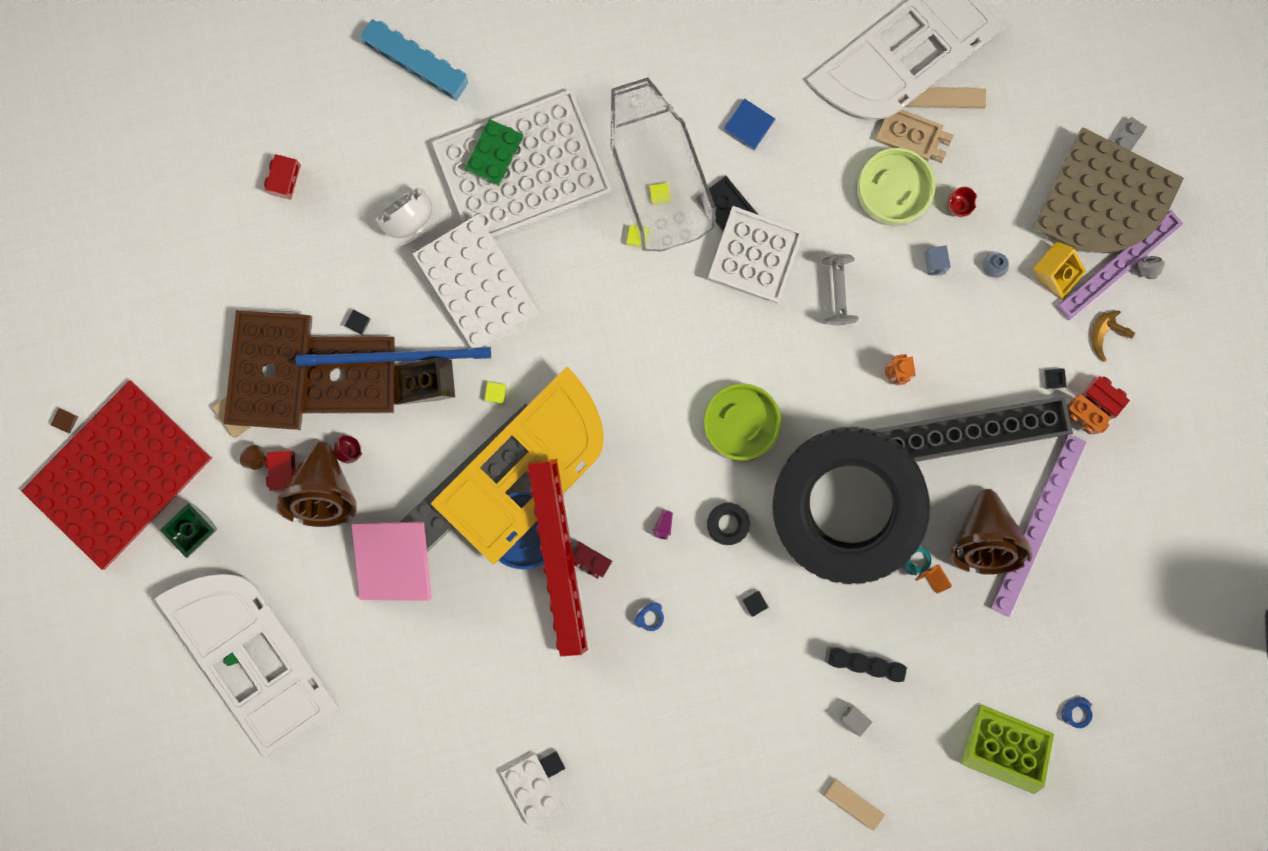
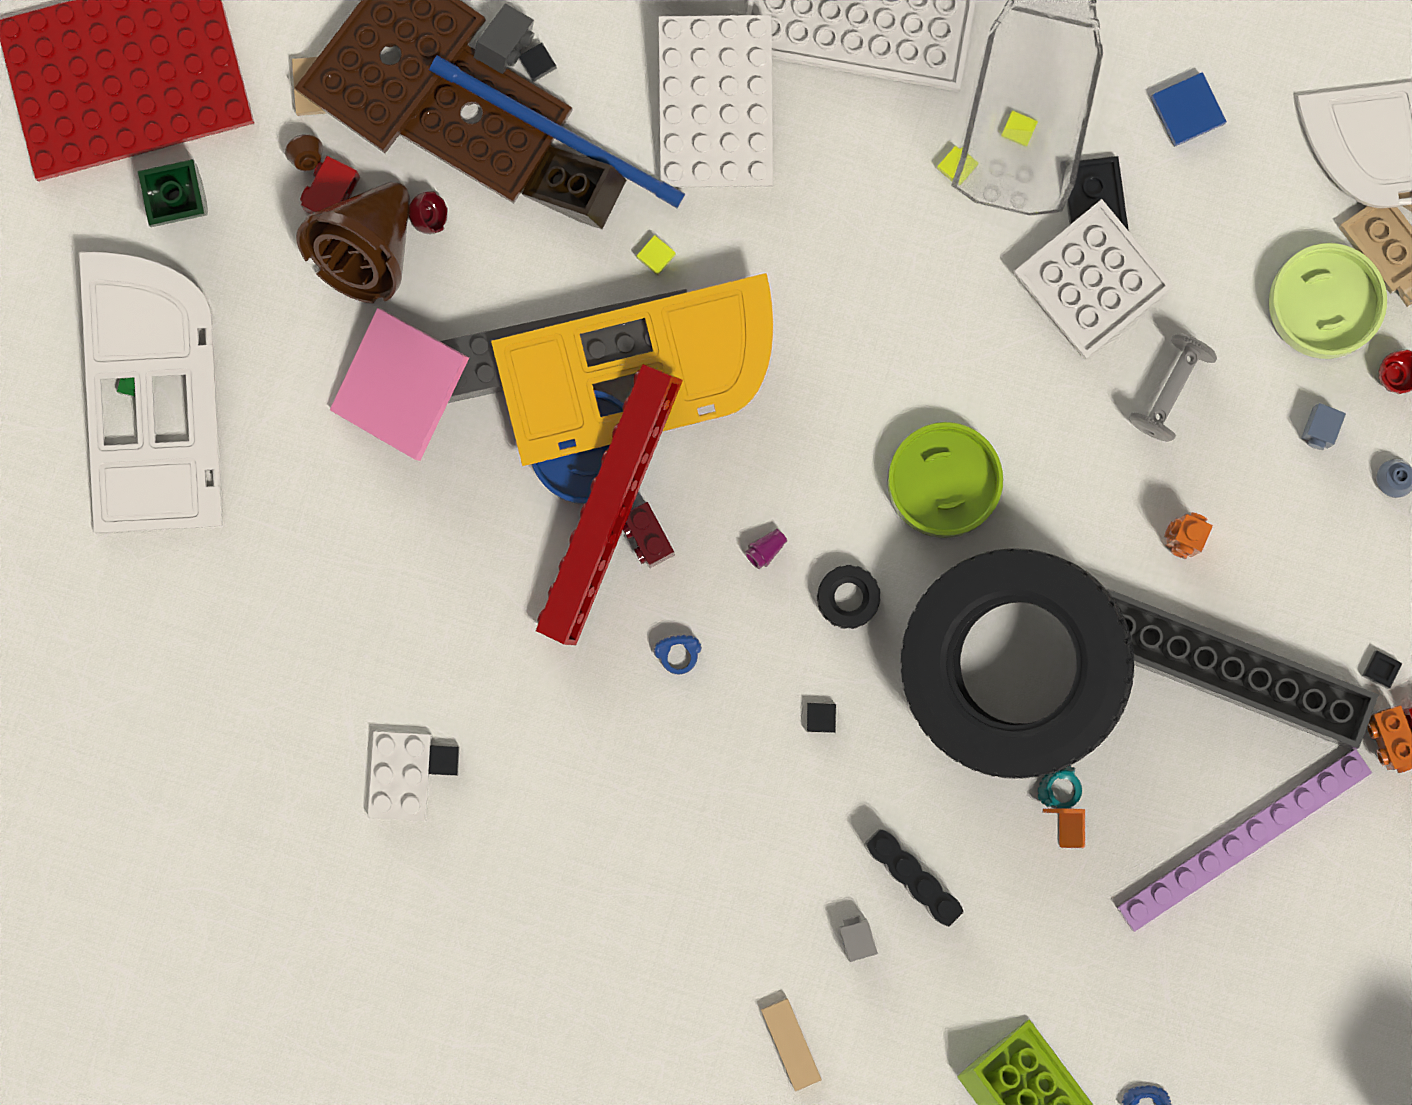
camera: 30 degrees right, 0 degrees up
(329, 320) = (504, 39): none -> dark grey brick
(990, 538) = (1168, 817): reddish brown cone -> none

